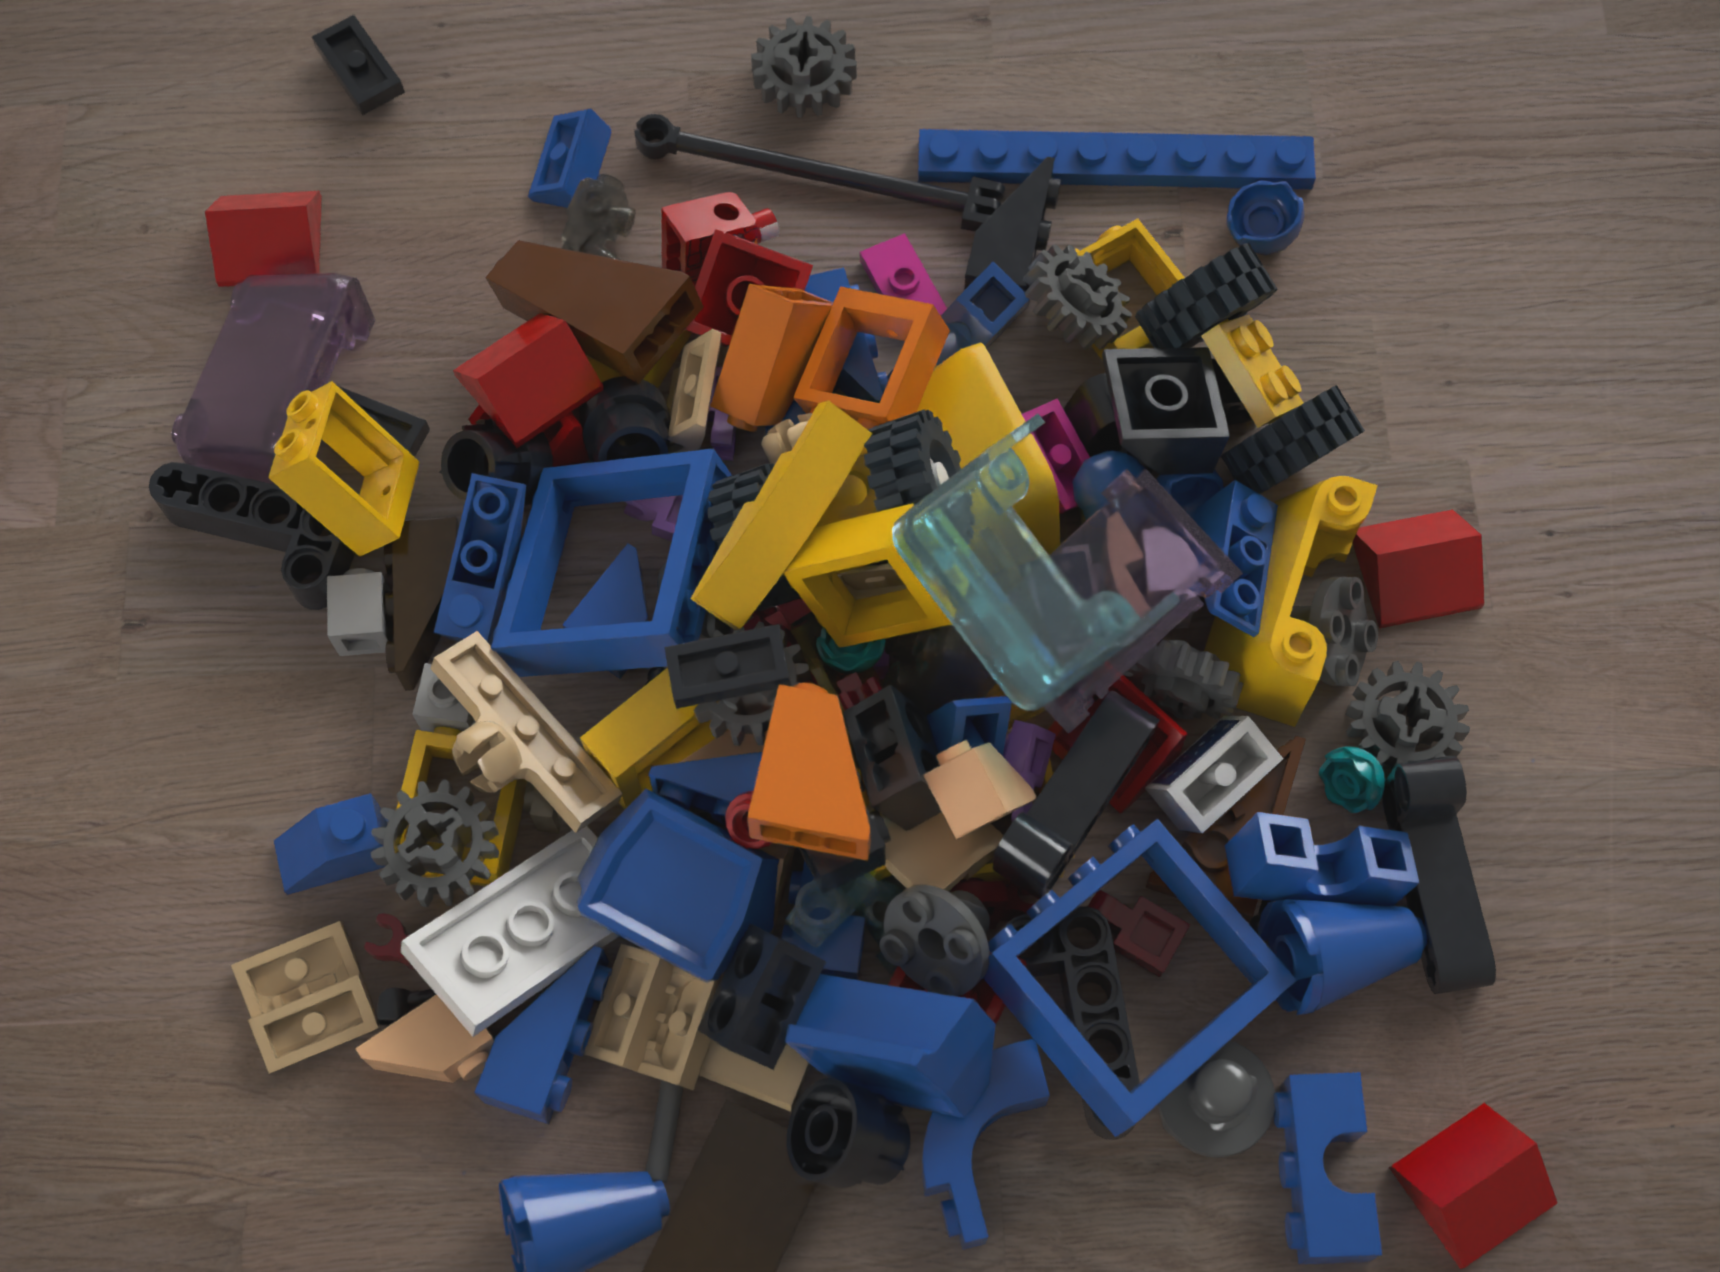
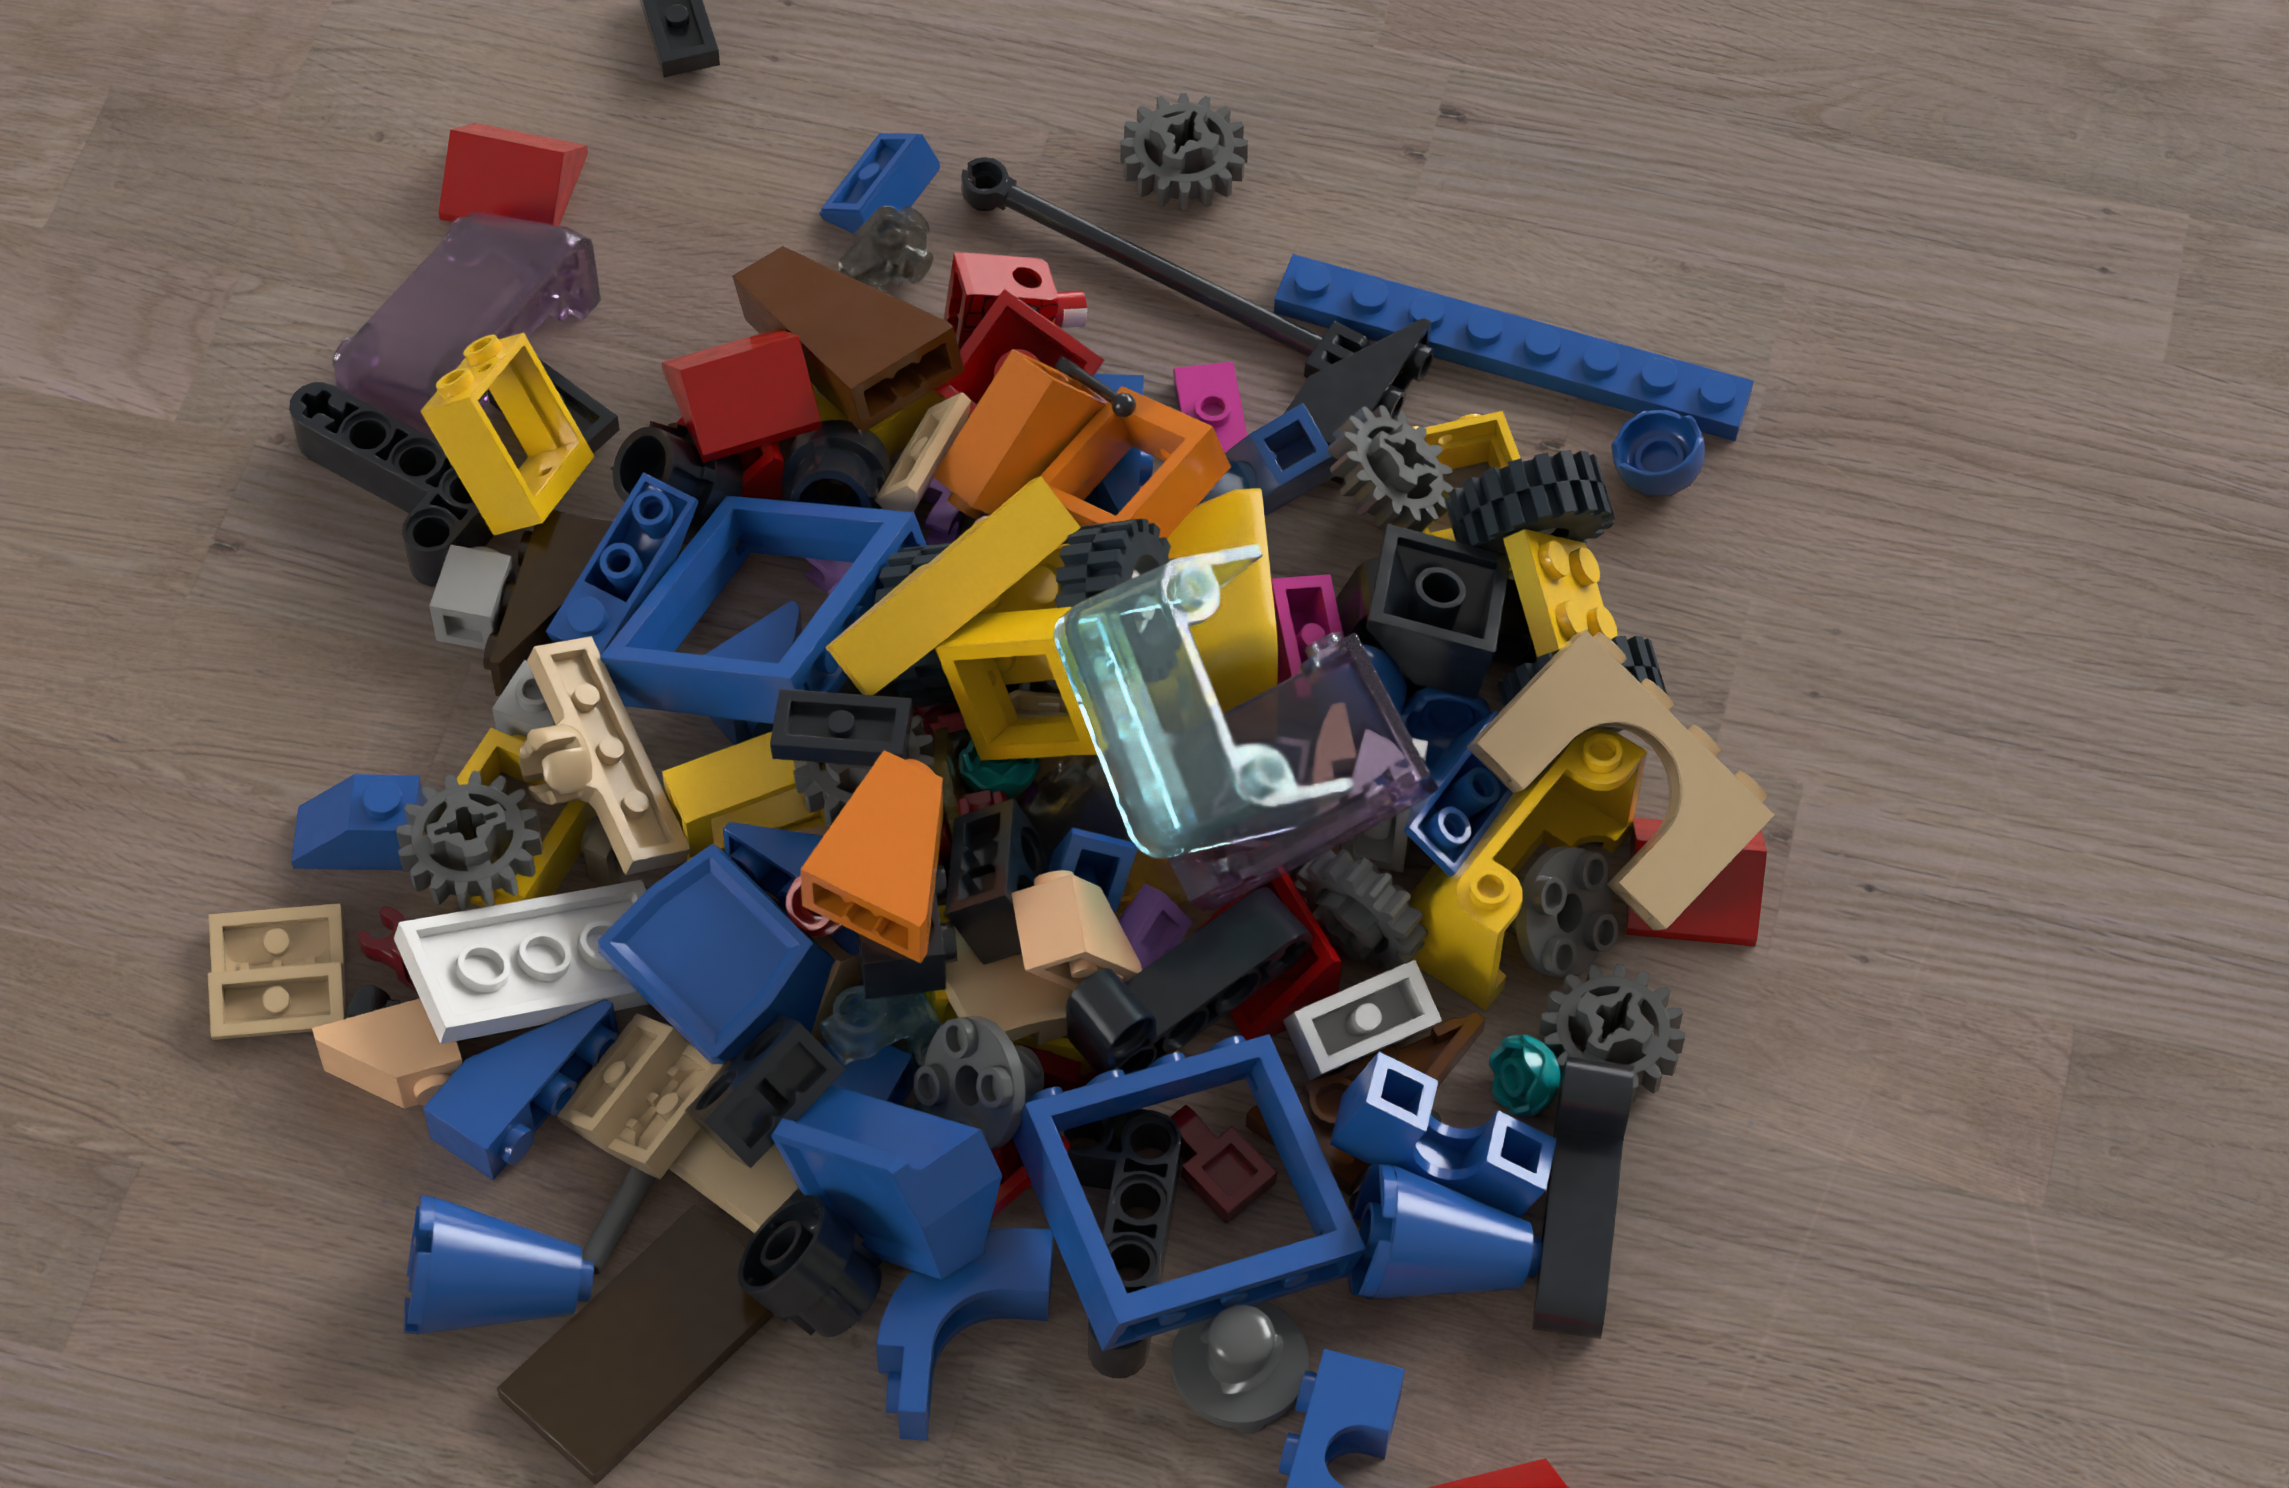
camera: 15 degrees right, 10 degrees down
(849, 303) = (1122, 404): none -> black hinge
(1435, 518) = (1708, 808): none -> tan arch

